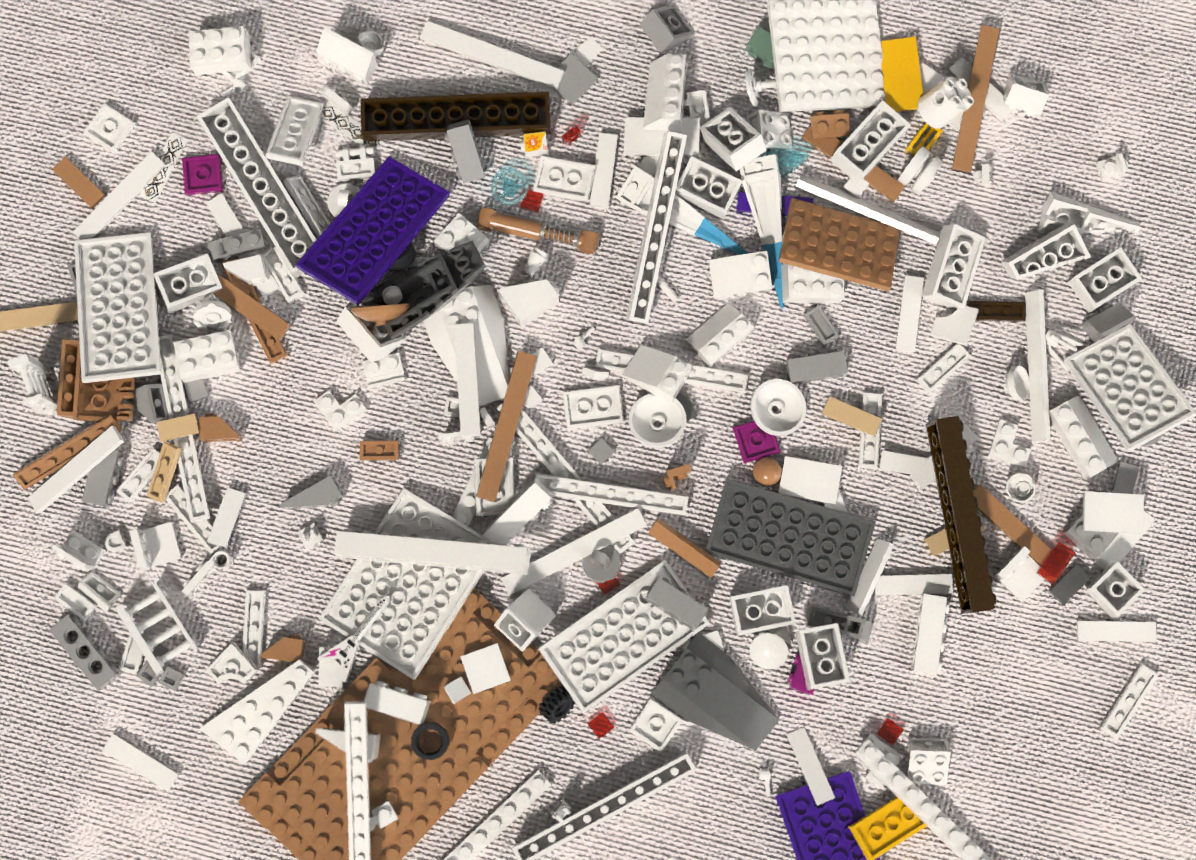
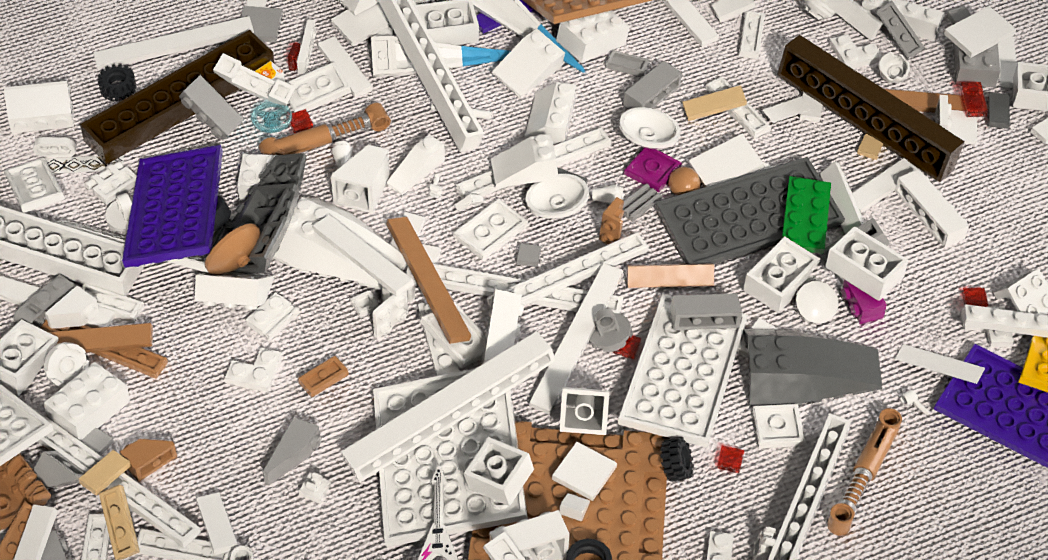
camera: 40 degrees left, 30 degrees down
(416, 637) = (499, 471): none -> white brick
(419, 55) = (116, 90): none -> black tyre
(514, 148) = (253, 82): none -> white slope
(582, 310) = (418, 164): none -> white slope
(586, 132) = (306, 47): none -> white tile
(682, 806) = (865, 470): none -> medium nougat piece
(701, 442) = (608, 193): none -> white cone
(718, 464) = (637, 200): none -> light grey tile
(826, 573) = (807, 213): none -> green plate
(1058, 457) = (900, 30): none -> light grey tile

